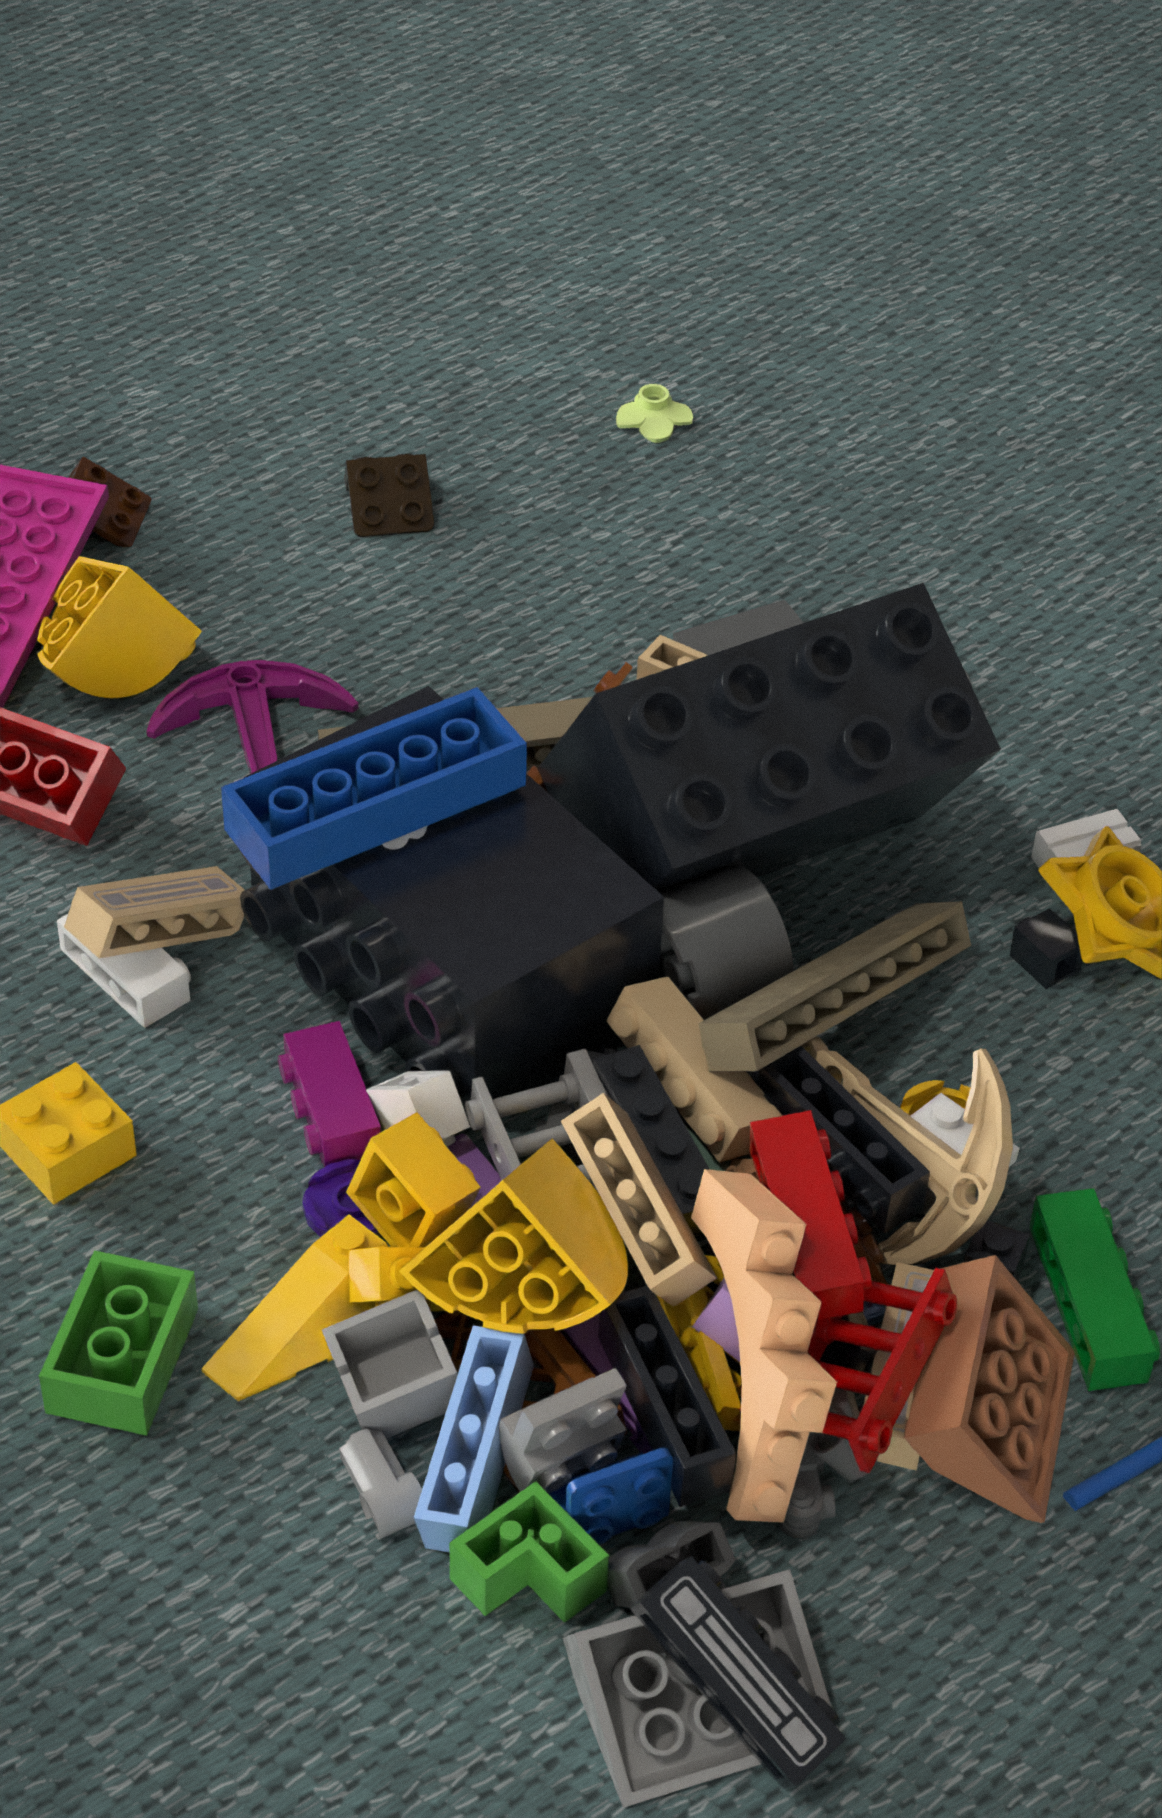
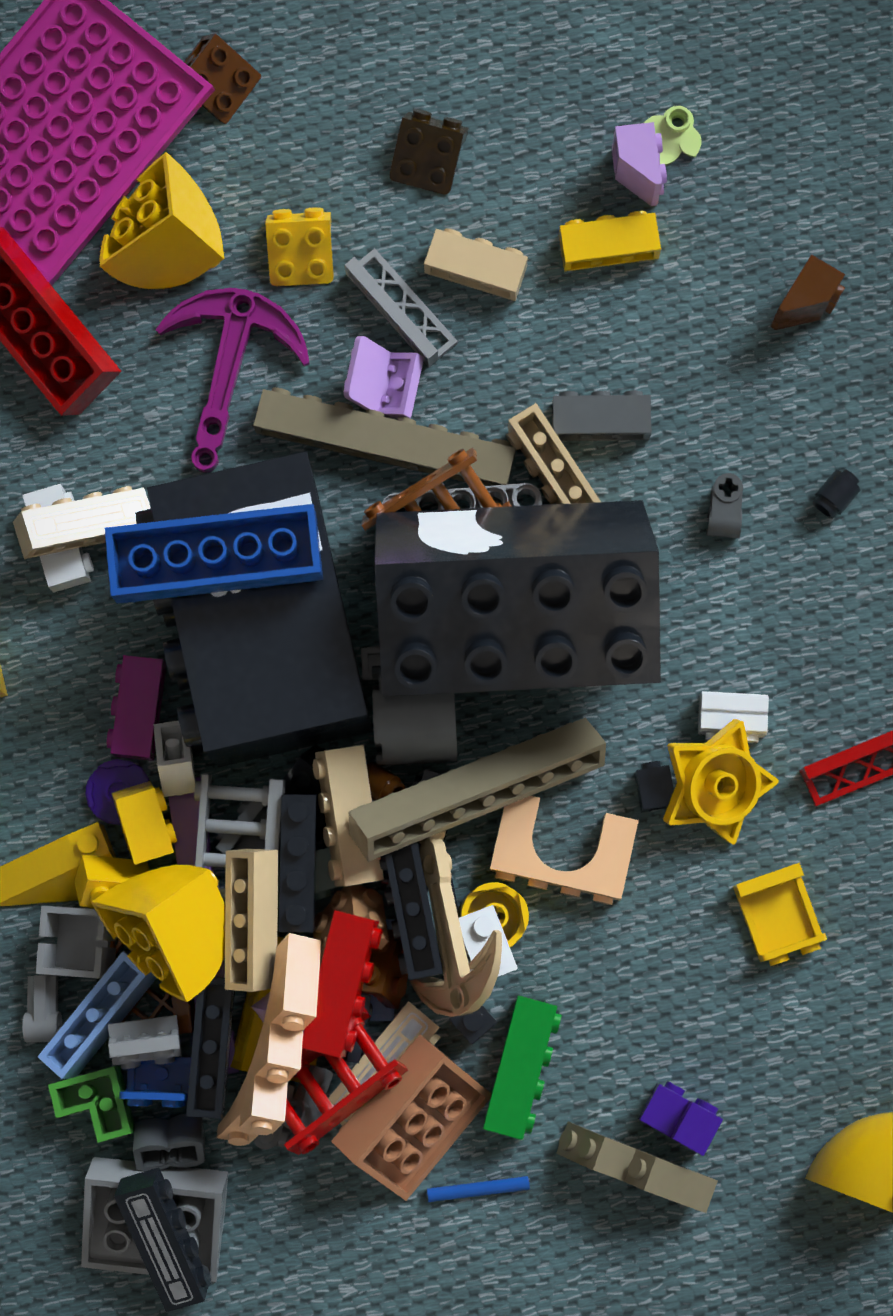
camera: 30 degrees right, 35 degrees up
(286, 611) = (299, 247): none -> yellow bracket
(435, 631) = (391, 310): none -> light grey fence
(477, 670) = (382, 379): none -> lavender bracket
(506, 565) = (476, 263): none -> tan brick
(637, 426) = (637, 161): none -> lavender slope
(646, 505) = (609, 241): none -> yellow brick
(902, 471) = (811, 295): none -> reddish brown slope
(1046, 1057) = (601, 877): none -> light nougat arch
(1051, 628) = (837, 493): none -> black brick

